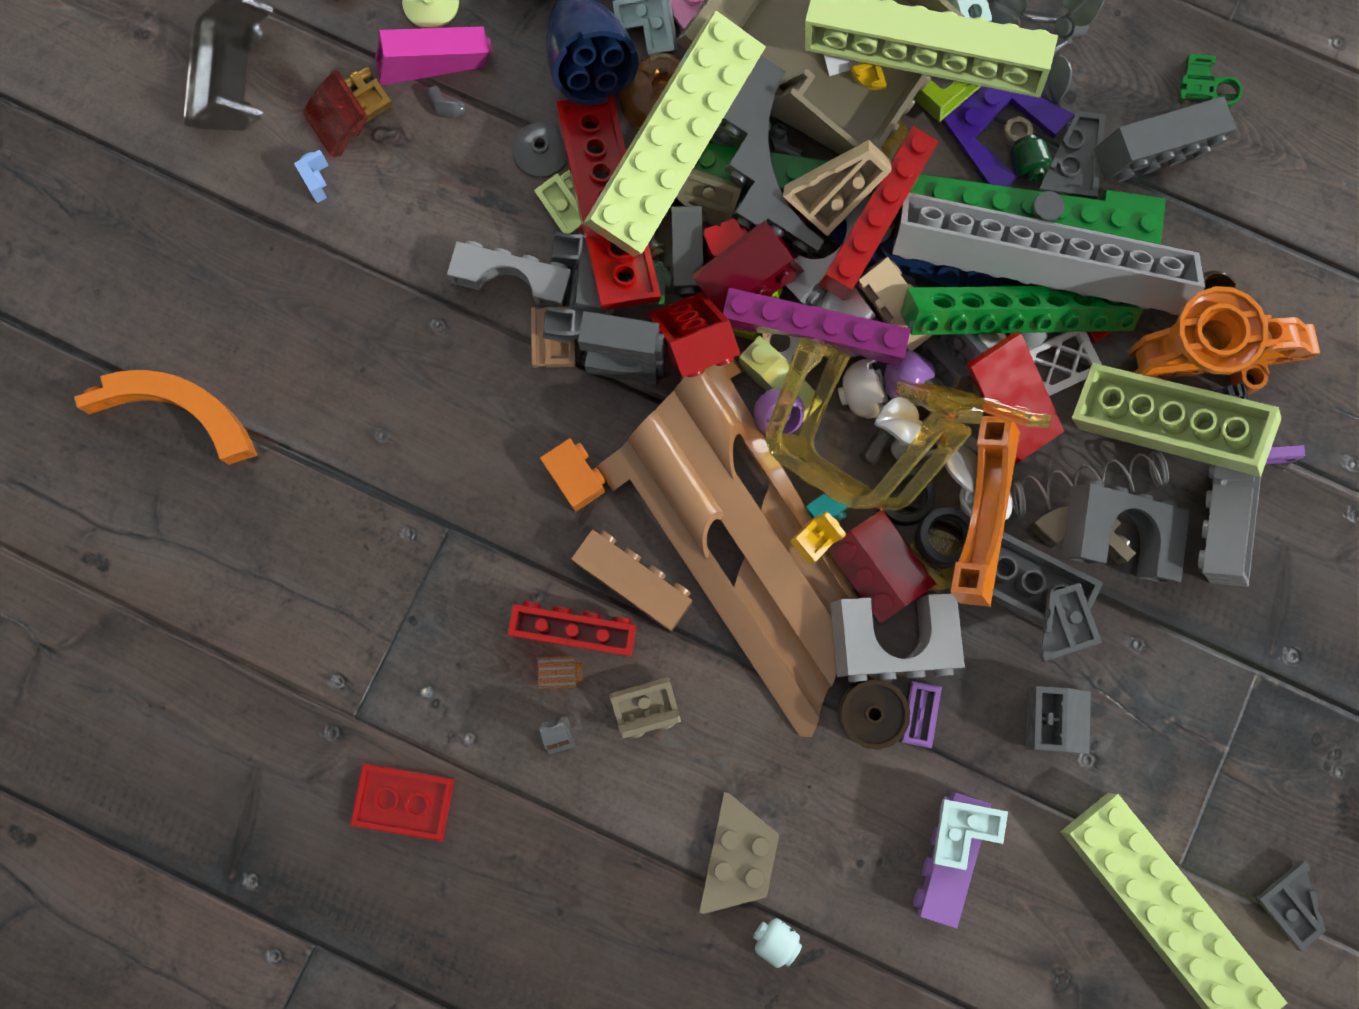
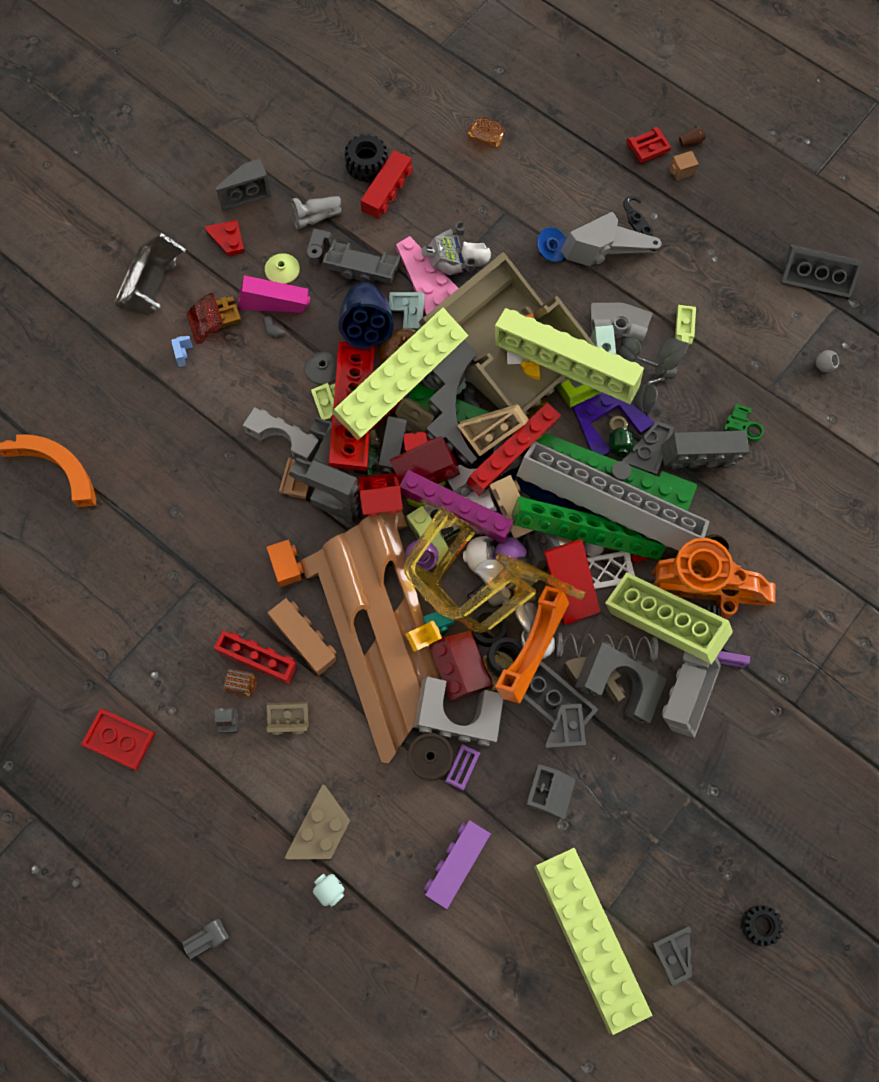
camera: 10 degrees right, 10 degrees down
(959, 824) = (465, 840): light aqua plate -> none

